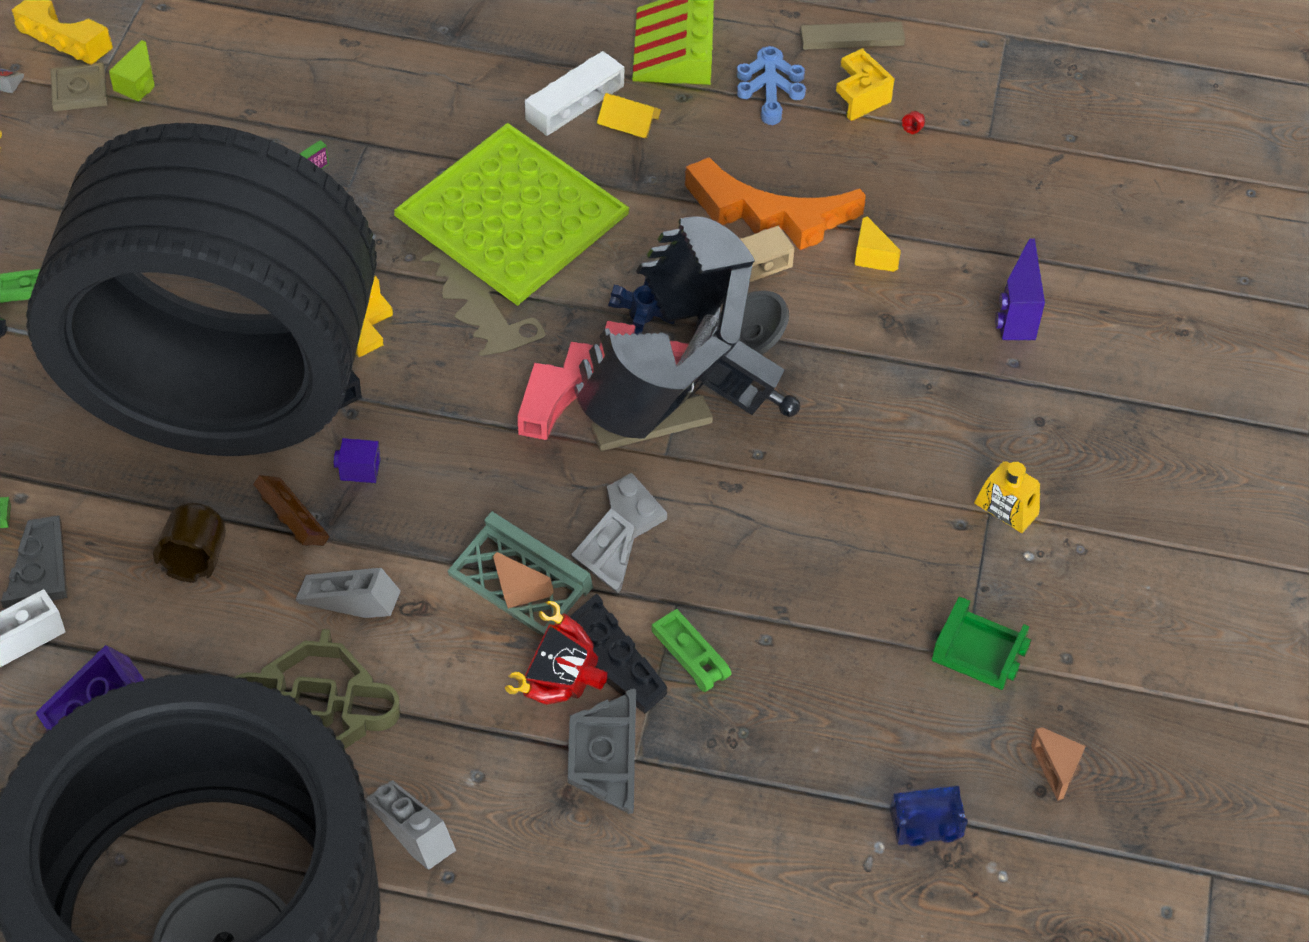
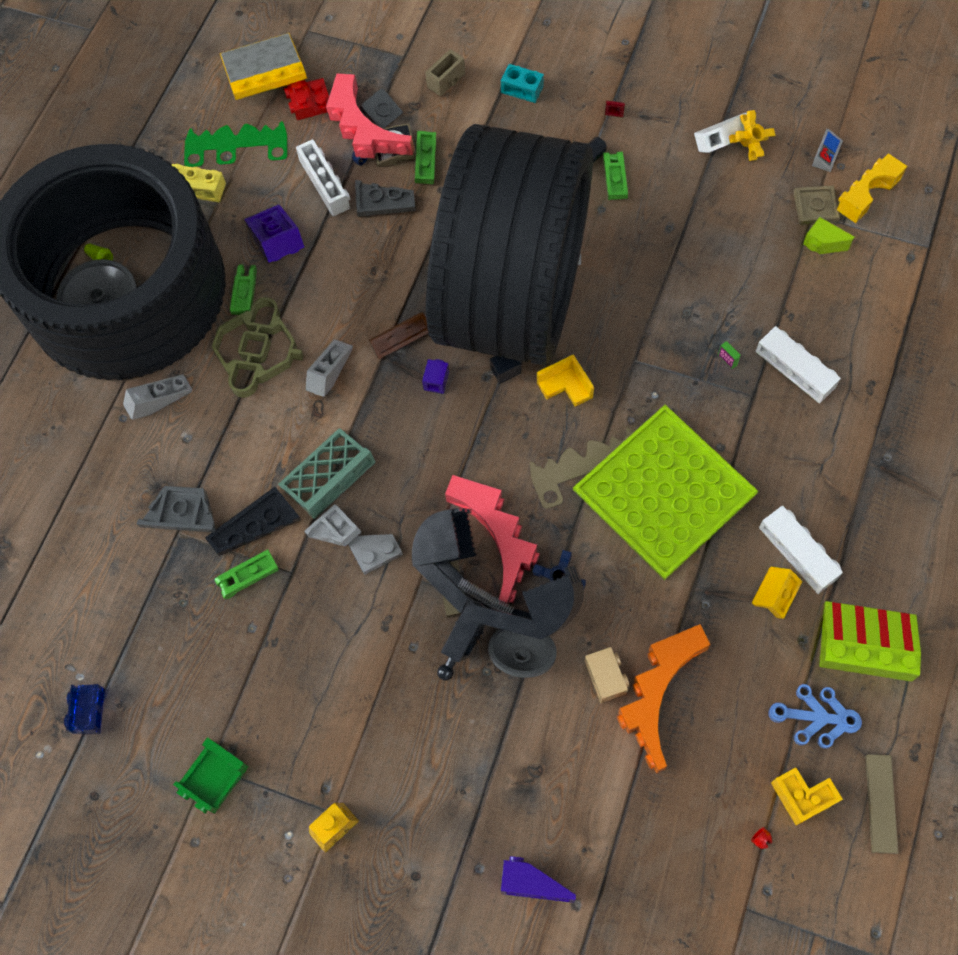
camera: 105 degrees right, 15 degrees up
(190, 542) = (379, 276): dark brown cylinder -> none
(327, 94) = (798, 364): none -> white brick
(520, 582) = (312, 464): nougat slope -> none
(561, 663) = (241, 485): torso -> none
(876, 249) = (607, 769): yellow slope -> none
(1058, 759) = (106, 810): nougat slope -> none

